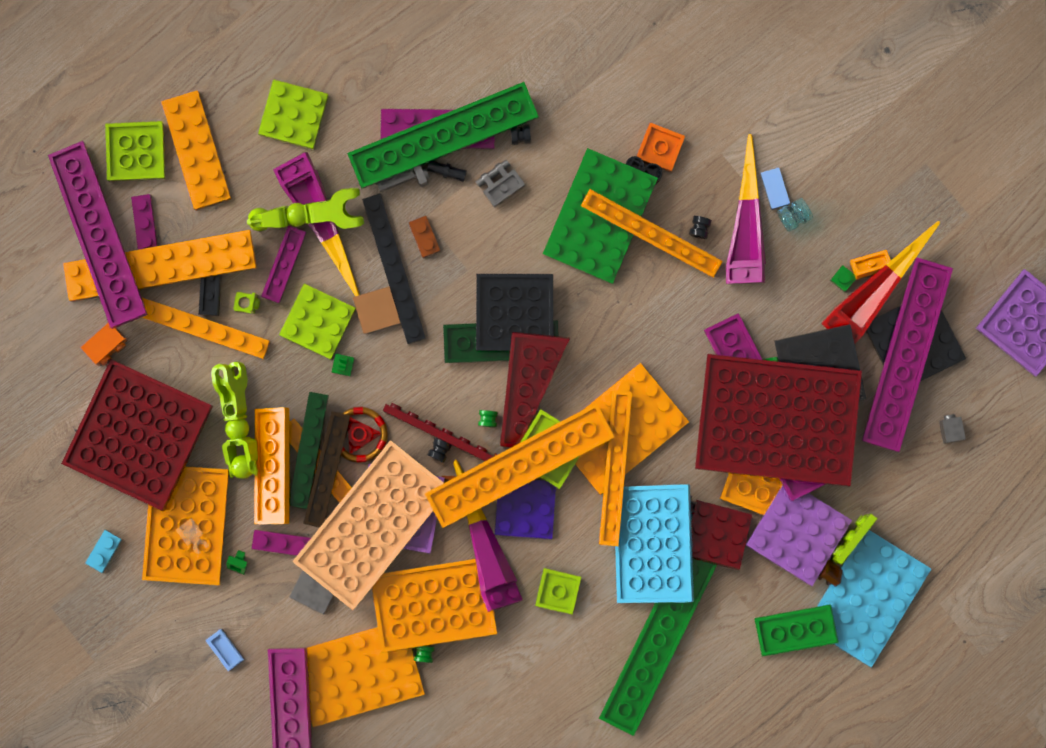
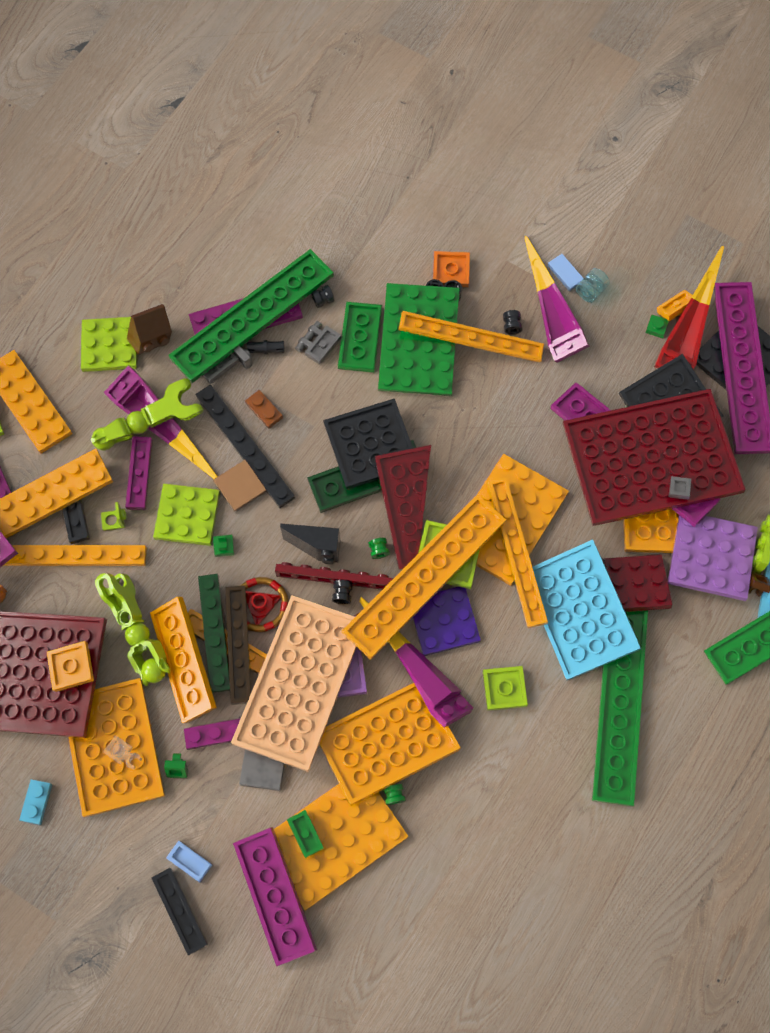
camera: 15 degrees left, 15 degrees down
(167, 442) = (70, 666): none -> light orange plate
(203, 690) = (179, 911): none -> black plate
(333, 663) = (305, 834): none -> green plate
(336, 120) = (149, 329): none -> reddish brown slope
(432, 396) = (318, 542): none -> black slope
(544, 190) = (360, 337): none -> green tile
(788, 464) = (680, 487): none -> flat silver plate

